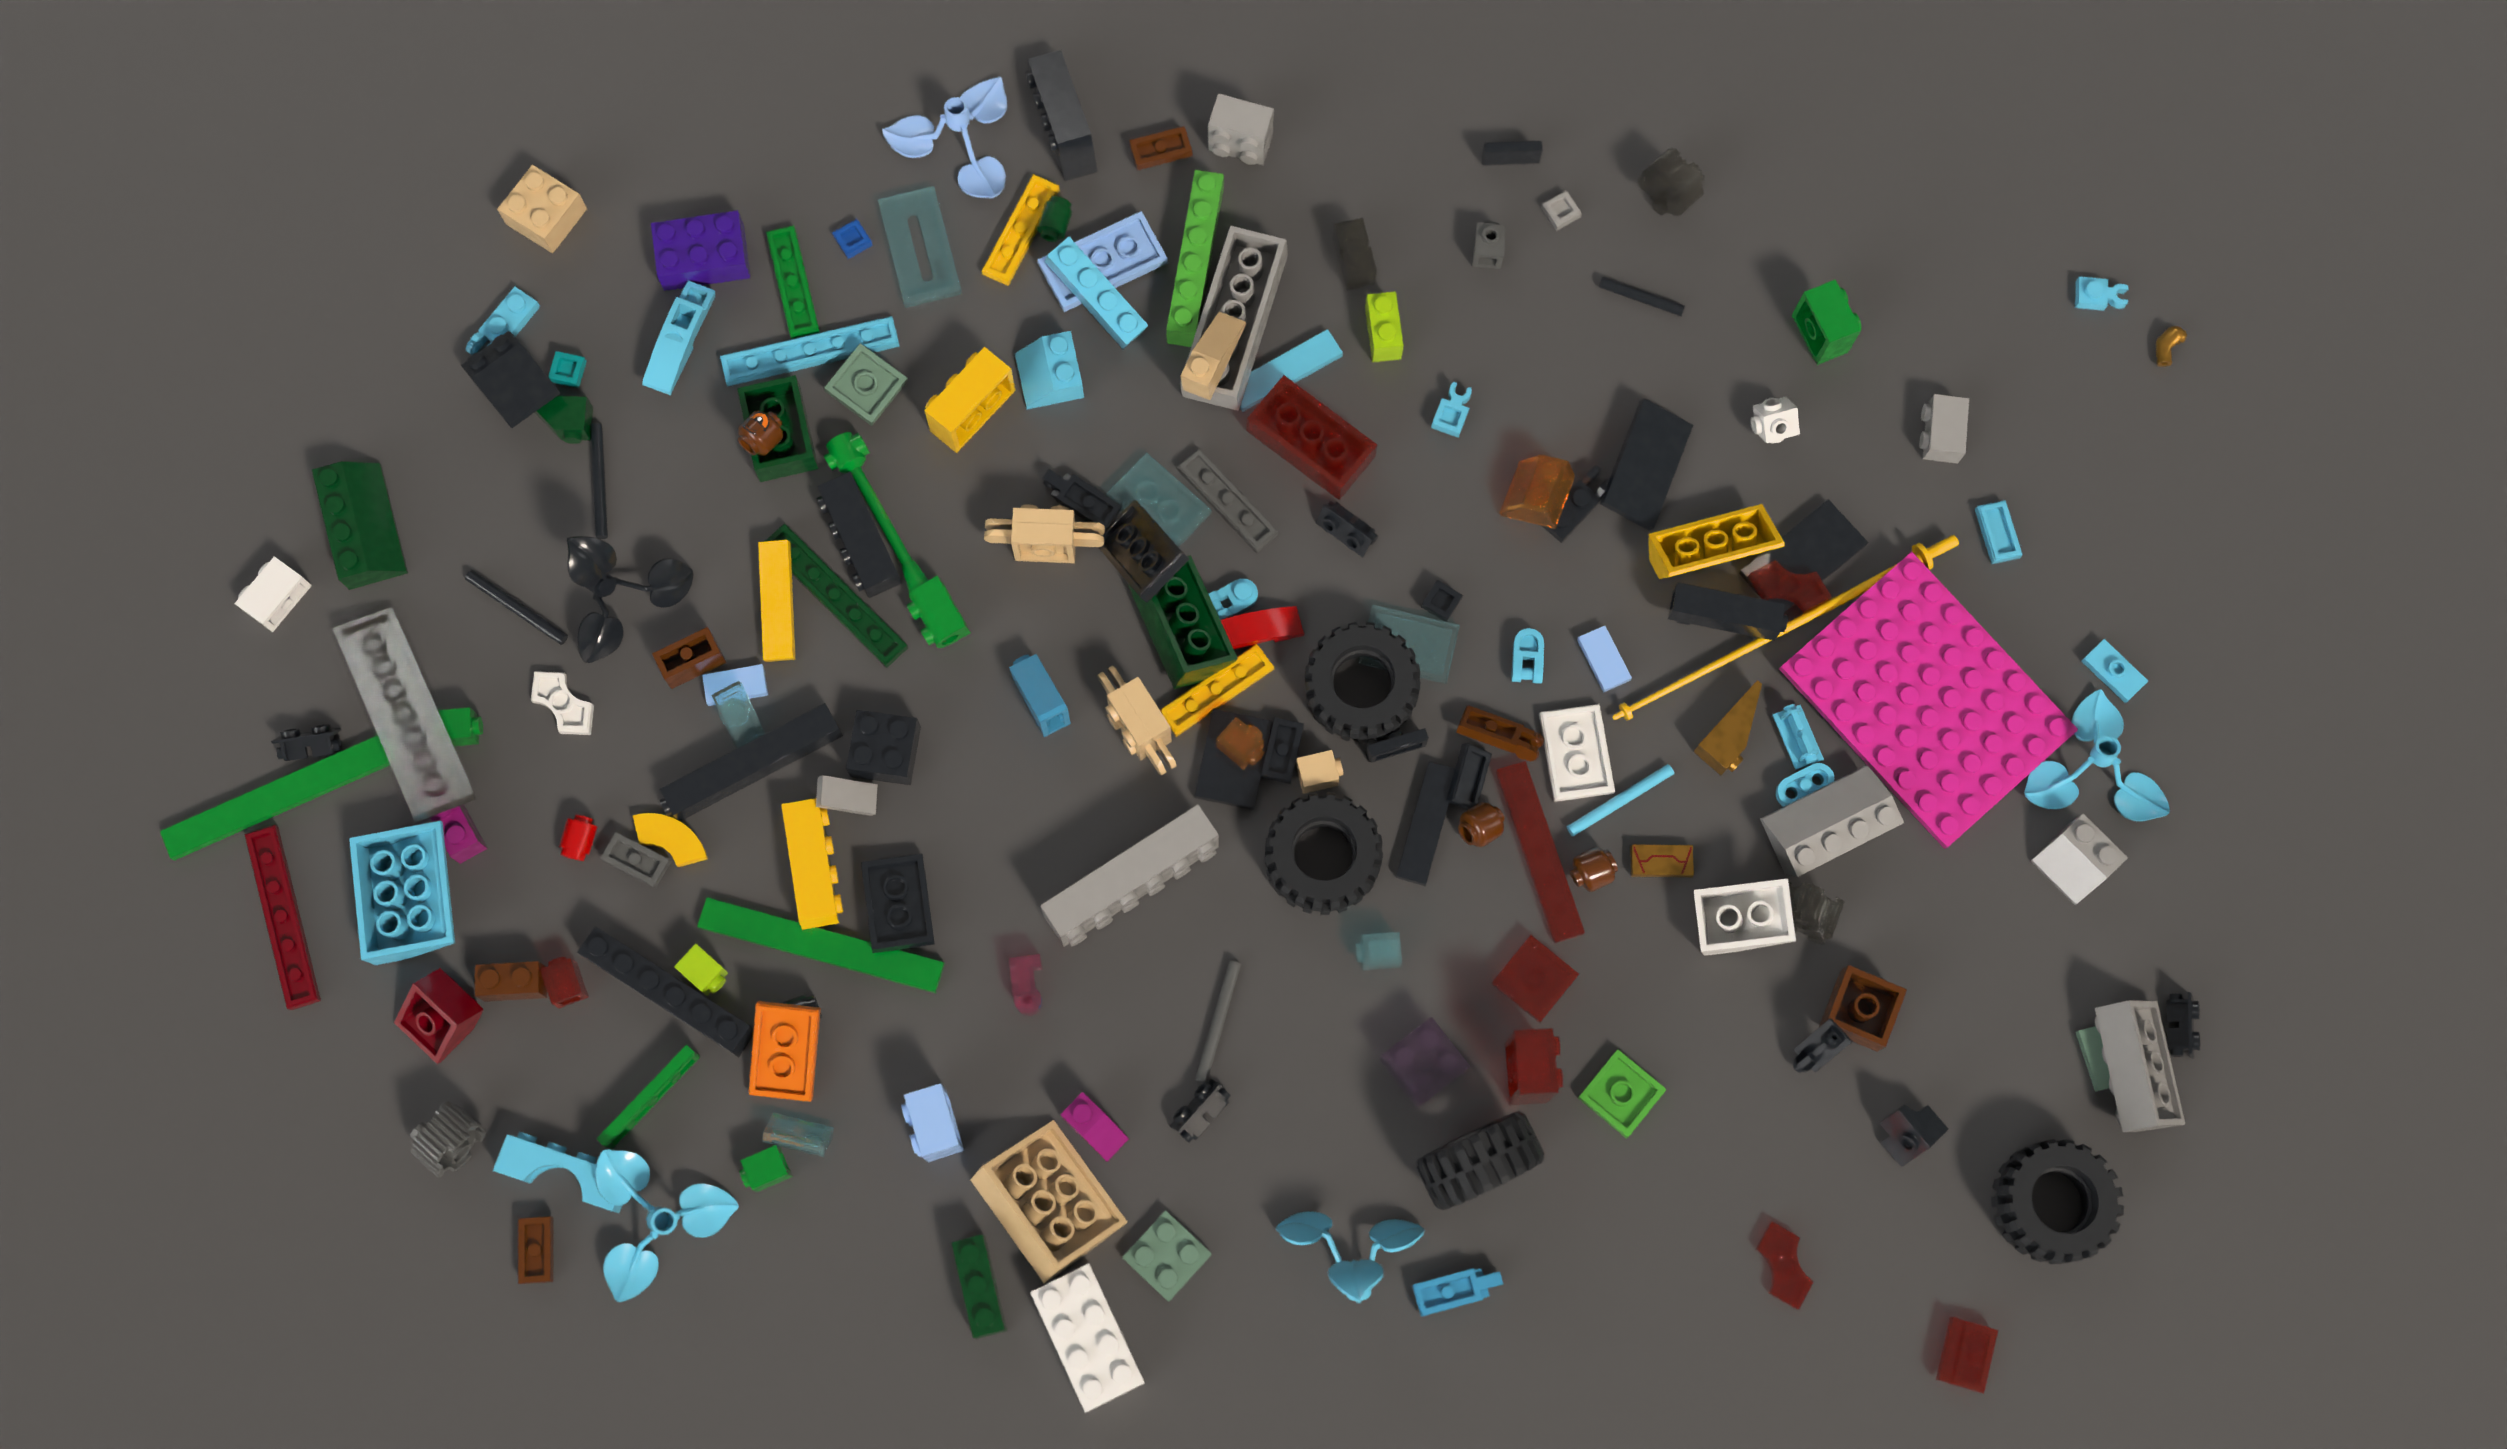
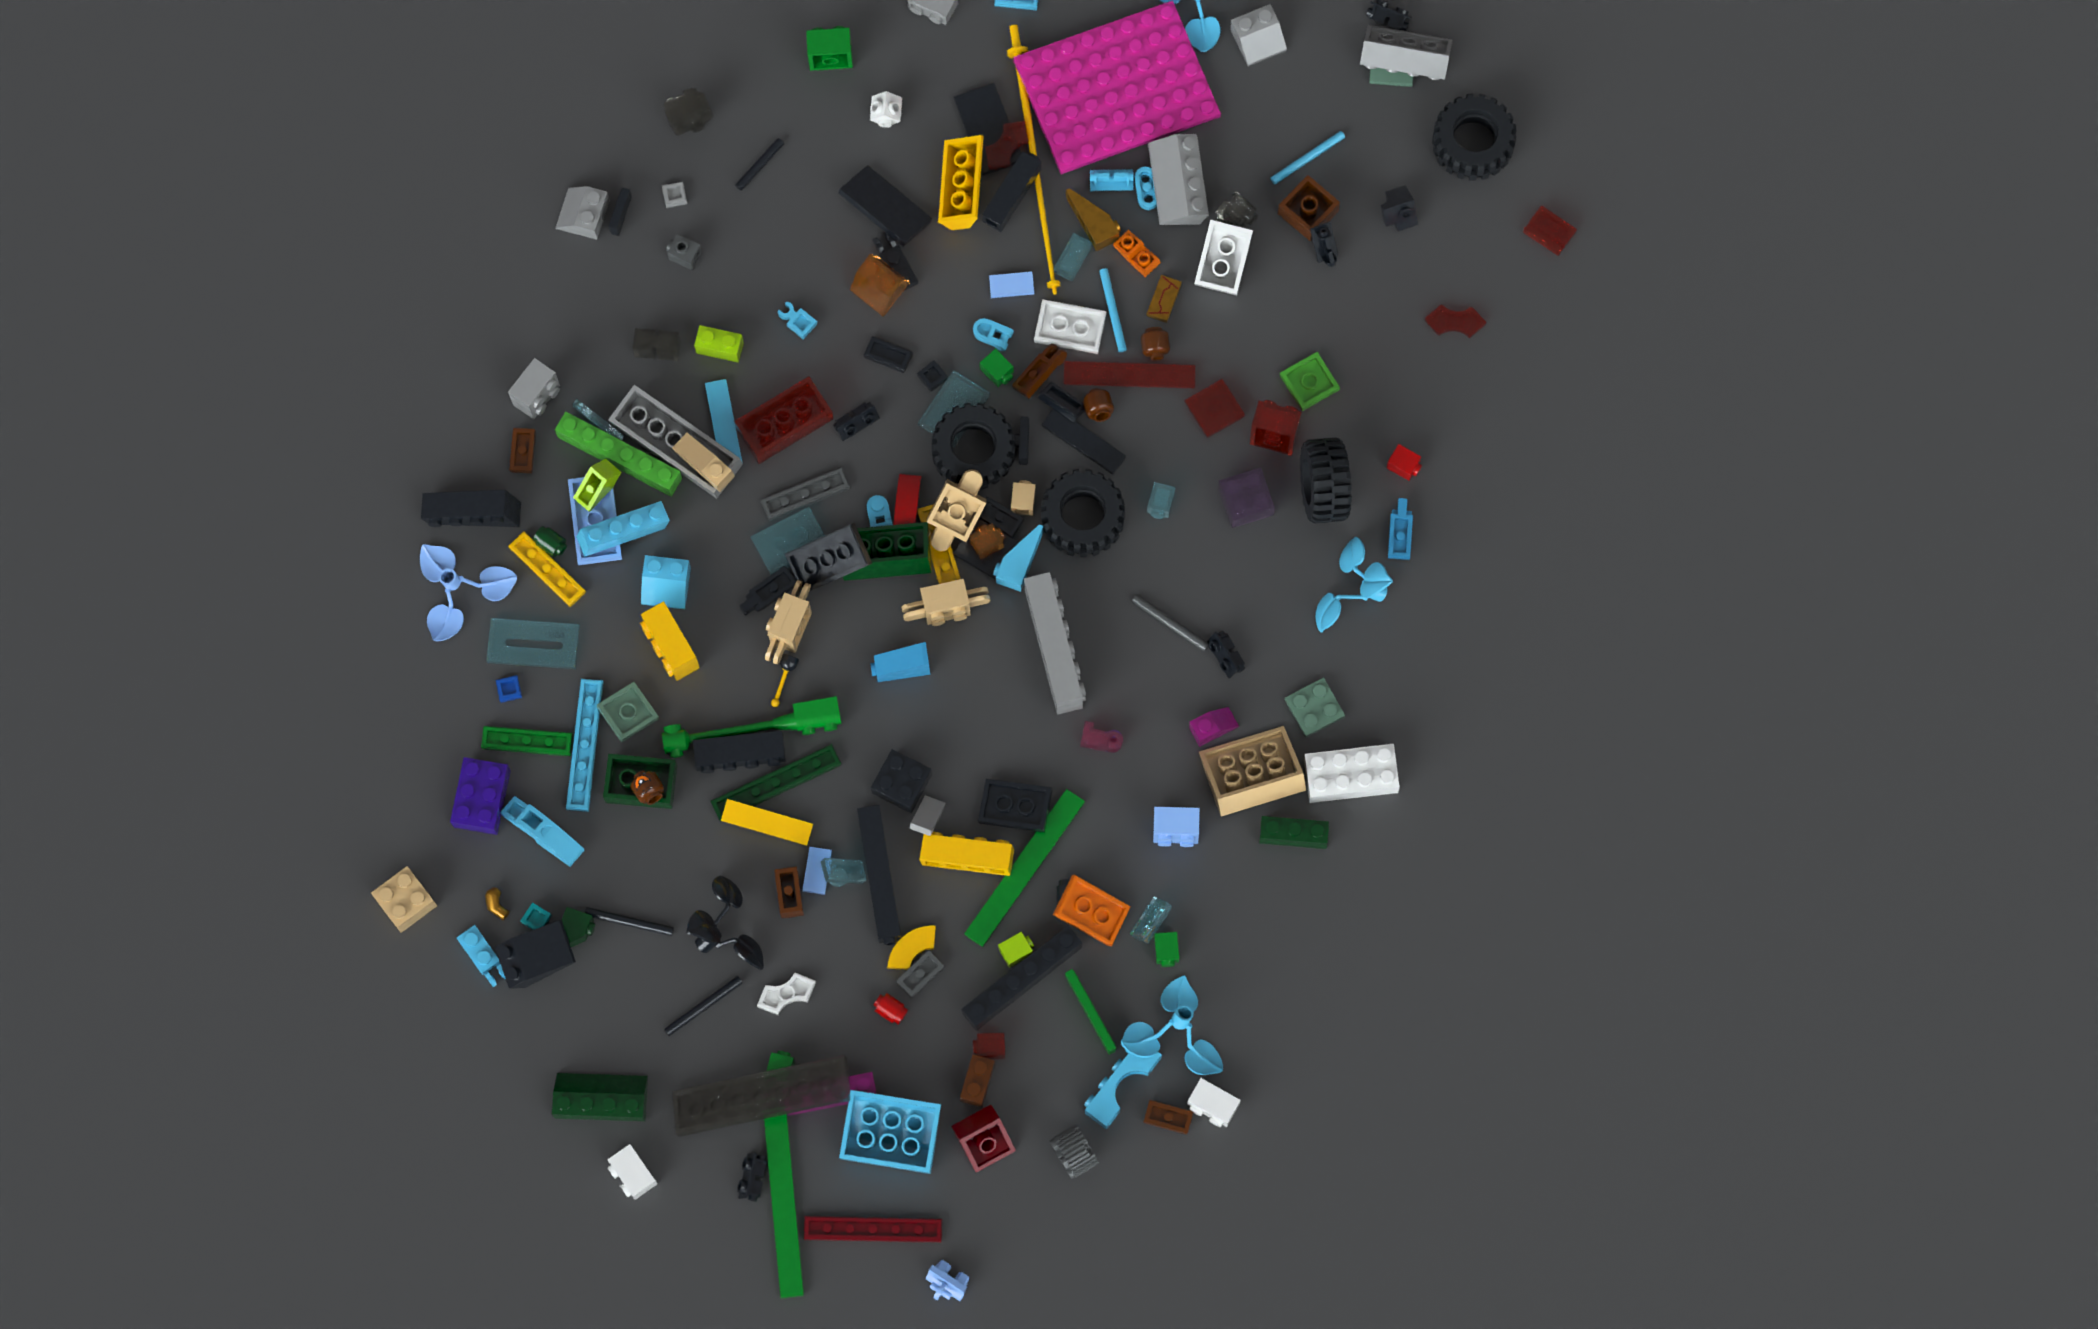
camera: 65 degrees left, 0 degrees up
(231, 1049) = (945, 1284): none -> light blue hips
(570, 315) = (492, 901): none -> pearl gold arm
(570, 1304) = (1213, 1102): none -> white brick
(995, 556) = (788, 664): none -> hinge
(1144, 243) = (596, 484): none -> lime slope
(1225, 793) = (1018, 561): none -> medium azure slope
(1231, 216) = (596, 419): none -> clear light blue tile
(1264, 688) = (956, 510): none -> tan brick
(1451, 537) = (888, 354): none -> black tile
(1482, 678) = (997, 368): none -> green brick
(1495, 113) = (583, 211): none -> light grey slope
(1554, 1263) = (1404, 462): none -> red brick
(1672, 723) = (1072, 257): none -> clear light blue plate
(1710, 804) = (1136, 253): none -> orange slope
(1935, 984) = (1307, 157): none -> medium azure bar

